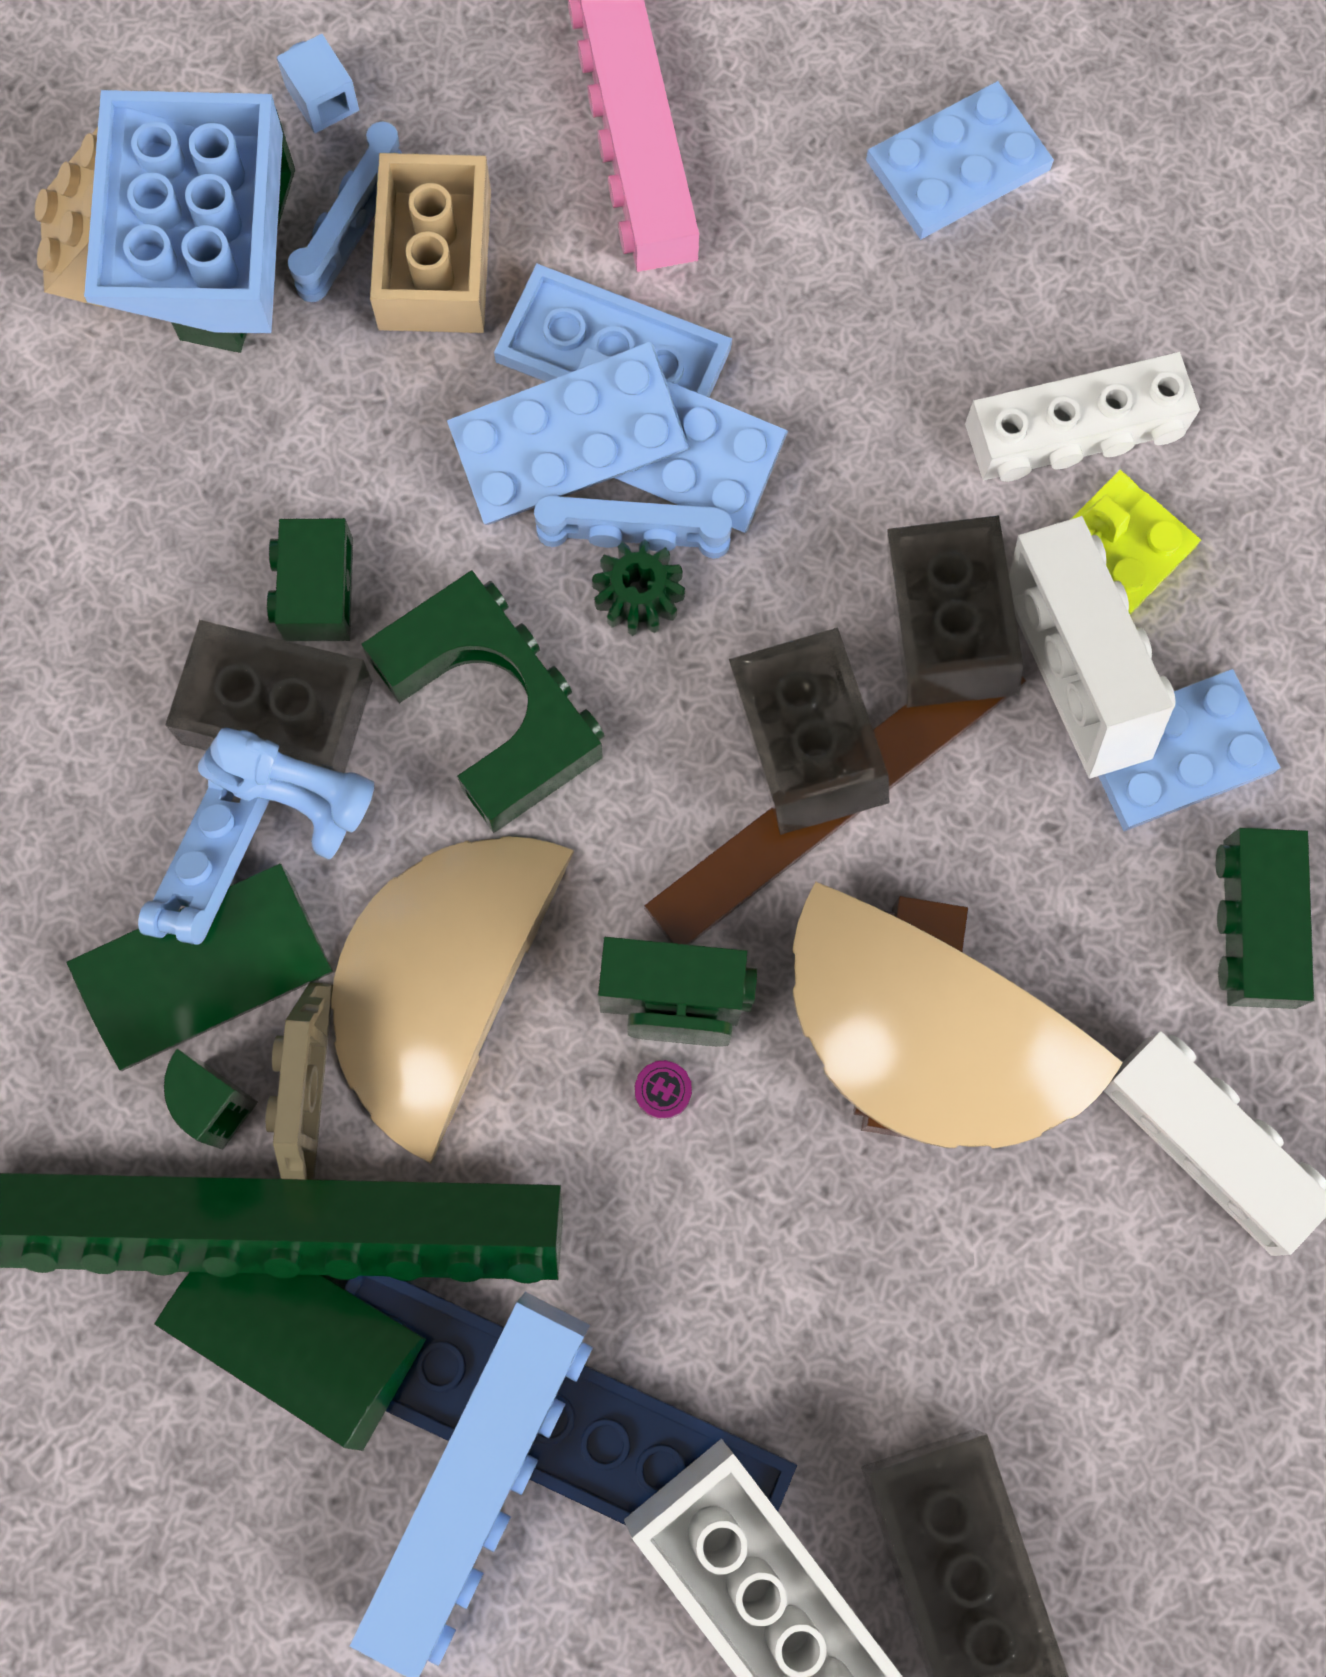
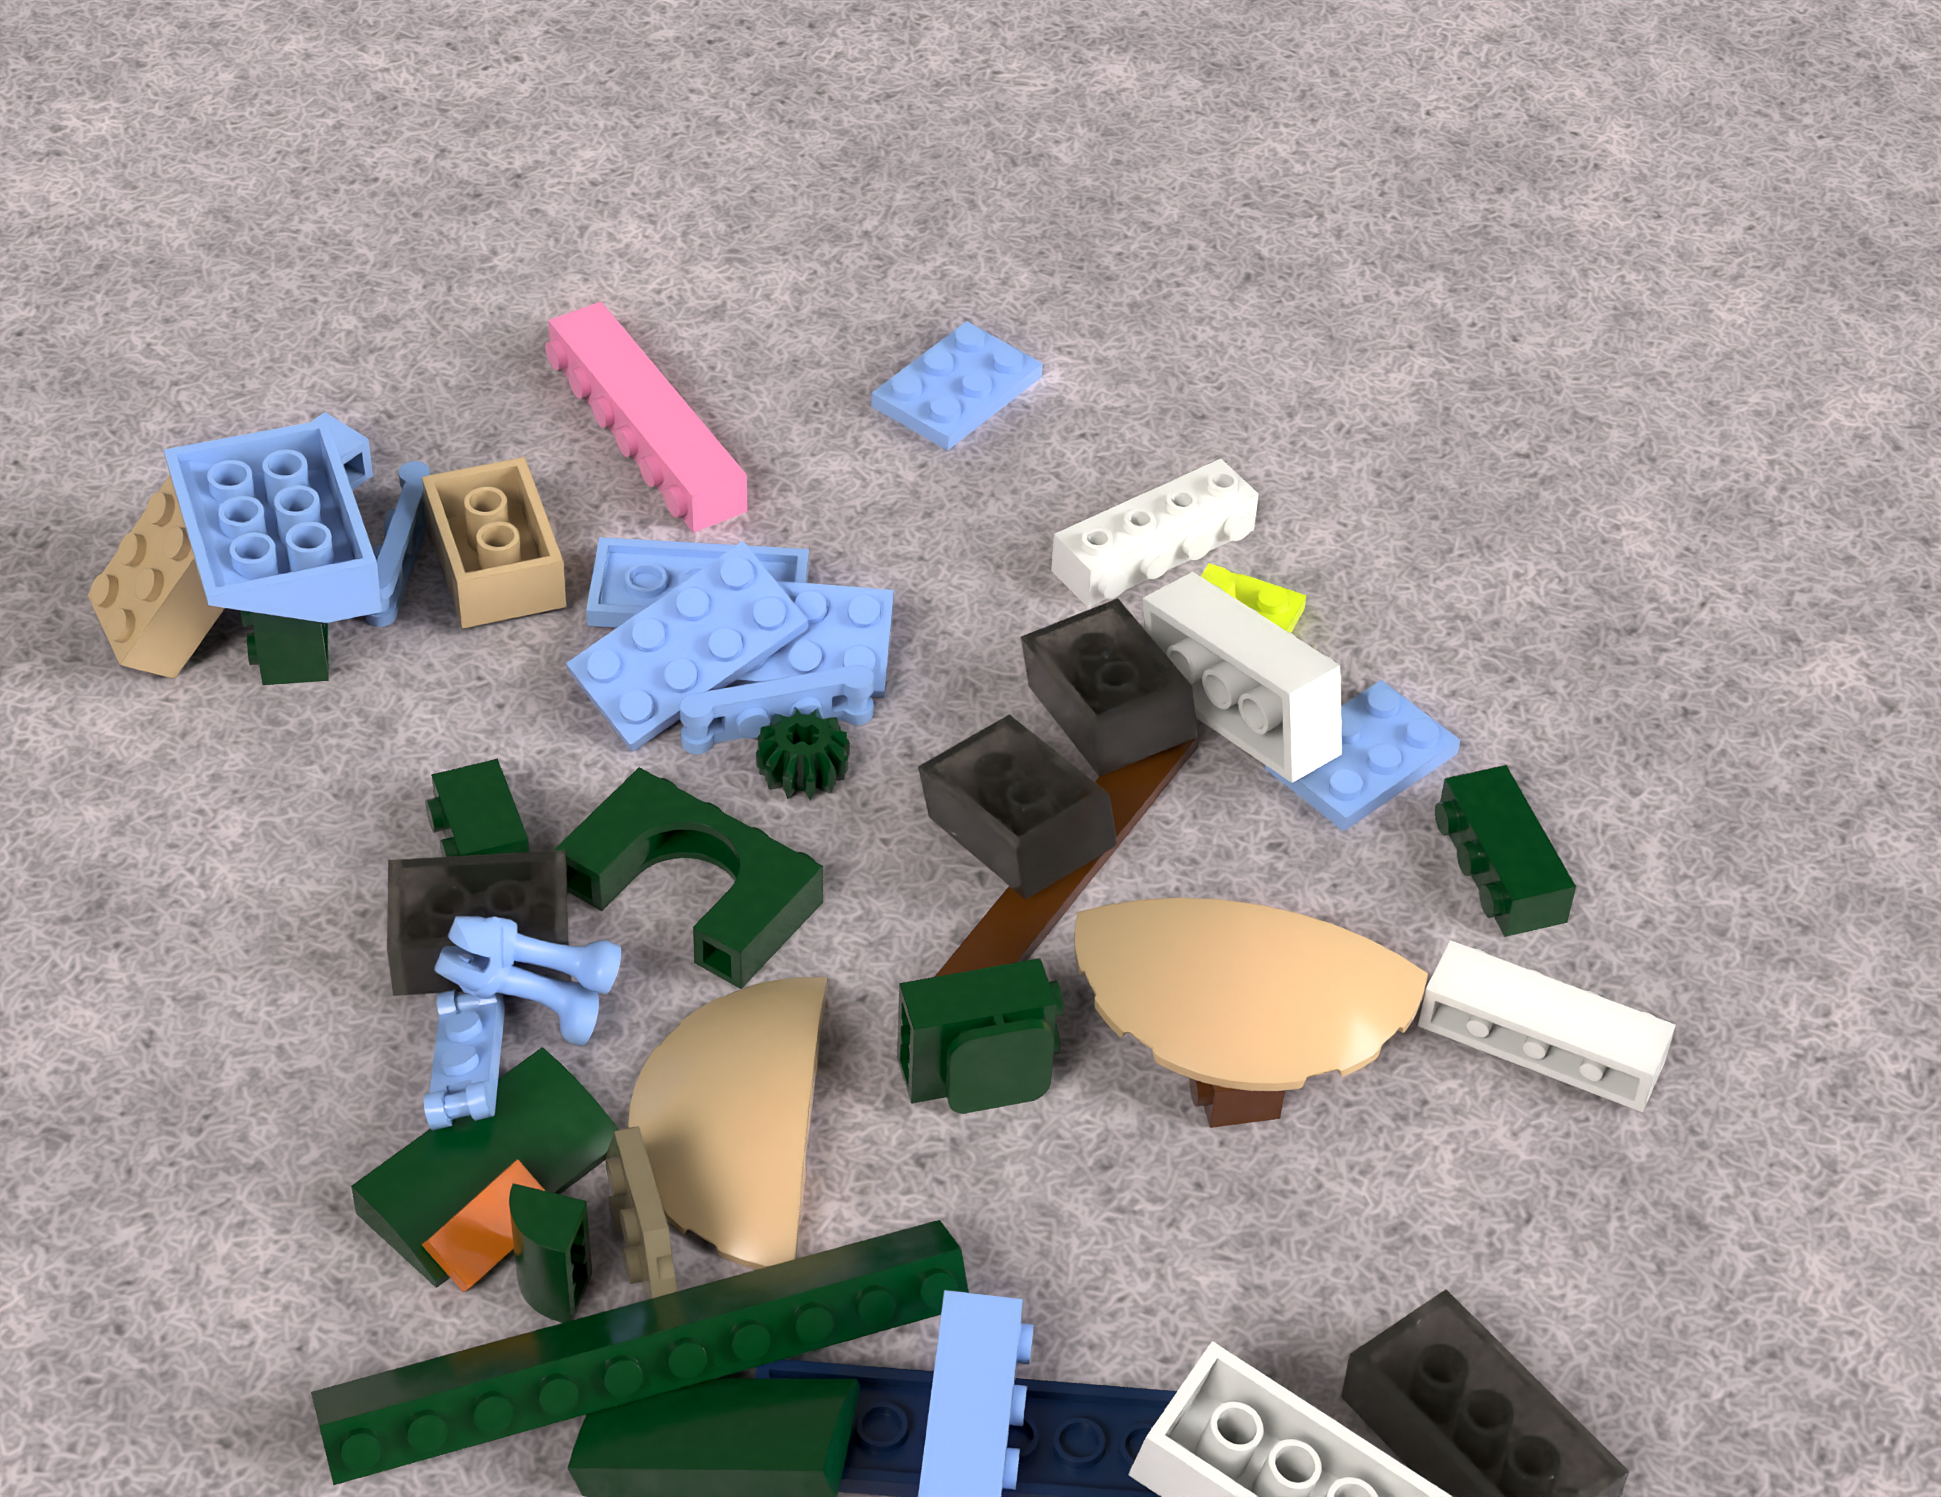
camera: 20 degrees left, 30 degrees down
(192, 1024) = (479, 1231): none -> orange tile
(663, 1090) = (1002, 1143): magenta tile -> none

